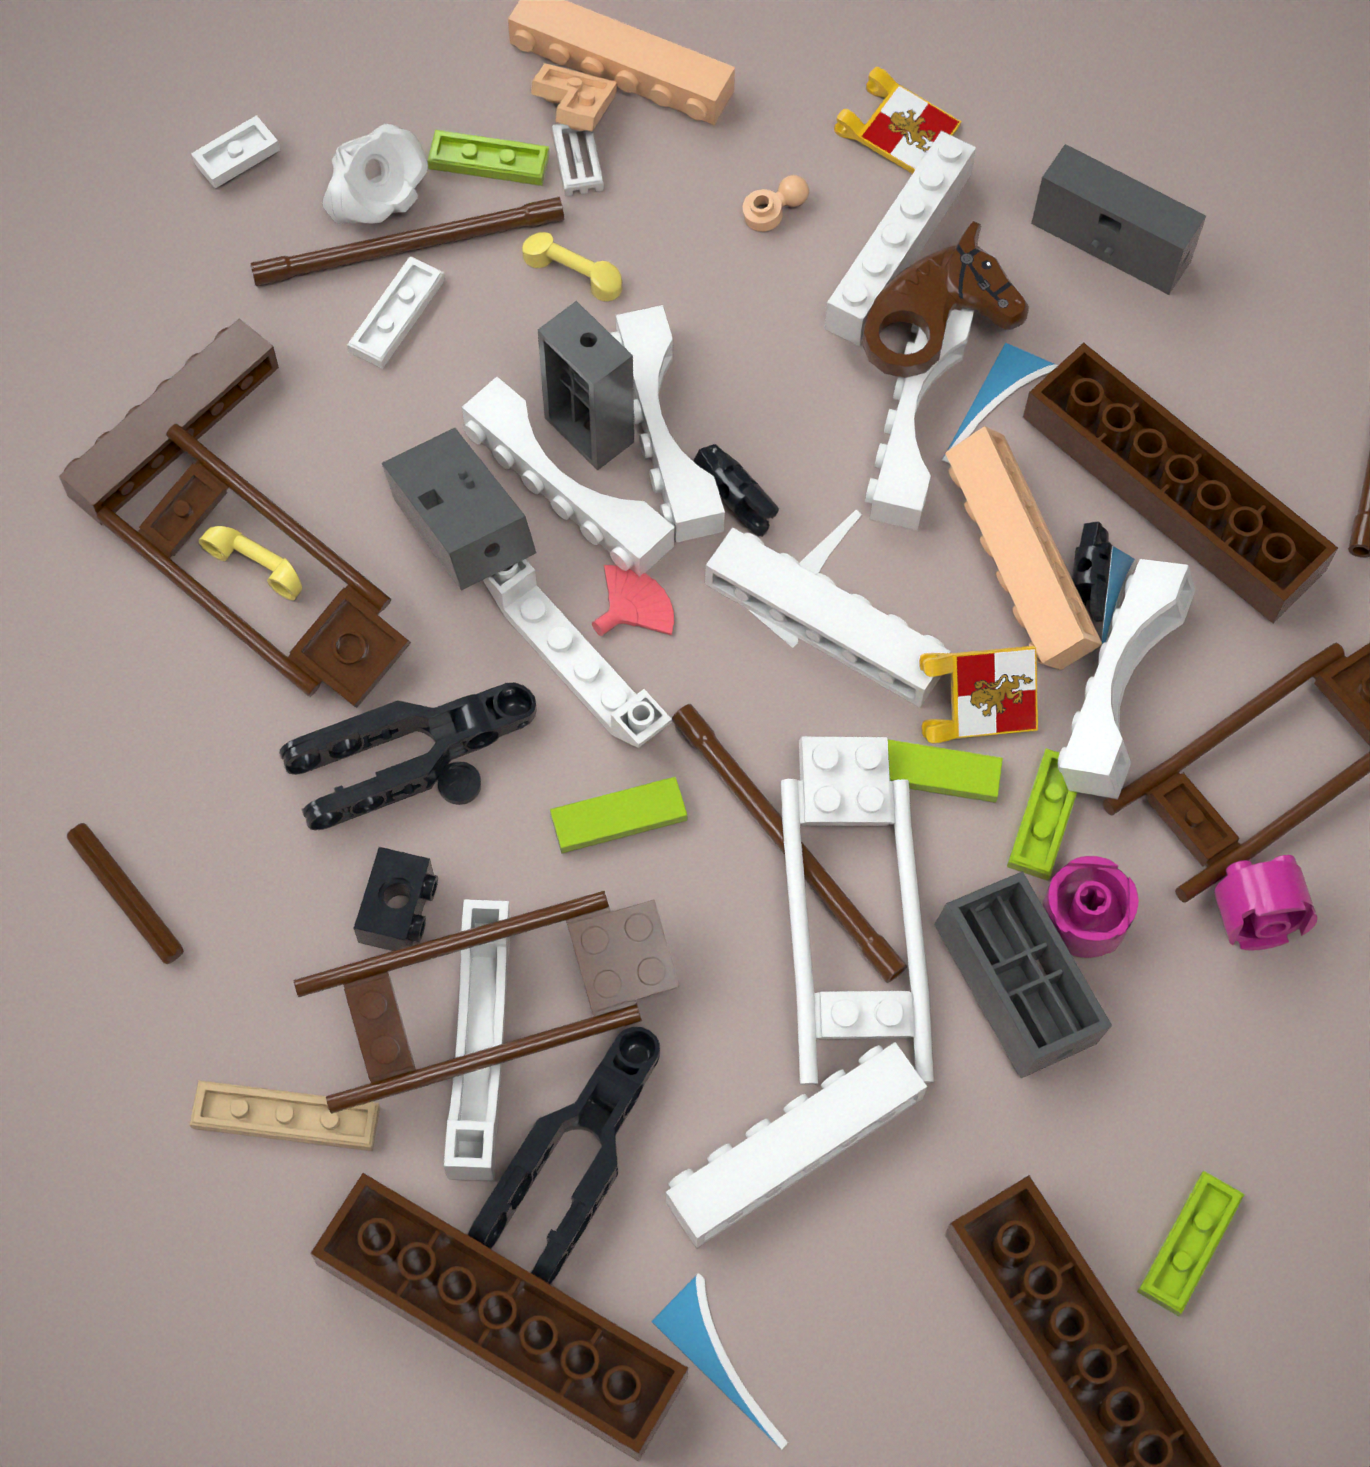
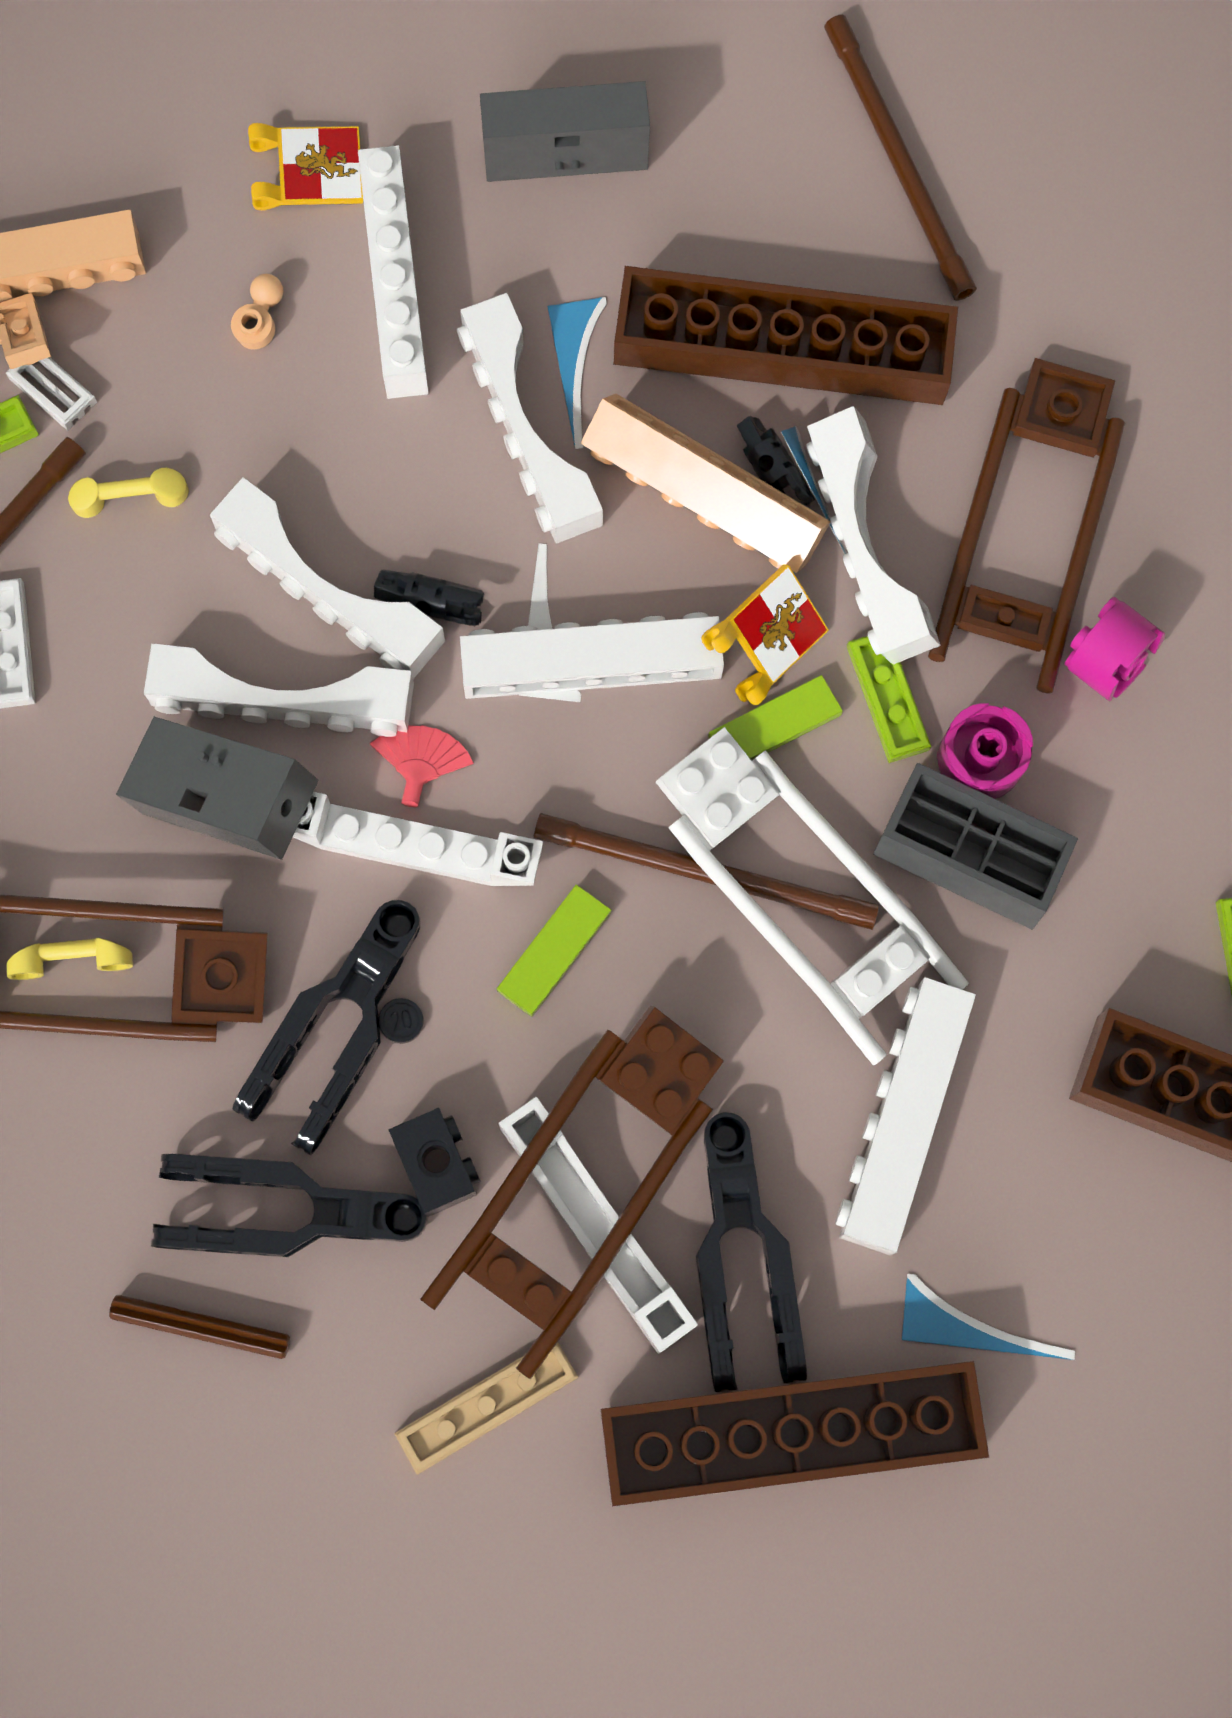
camera: 40 degrees left, 10 degrees up
(294, 888) = (336, 1211): none -> black piece
(586, 380) = (240, 585): dark grey brick -> none
(930, 291) = (460, 306): reddish brown animal -> none

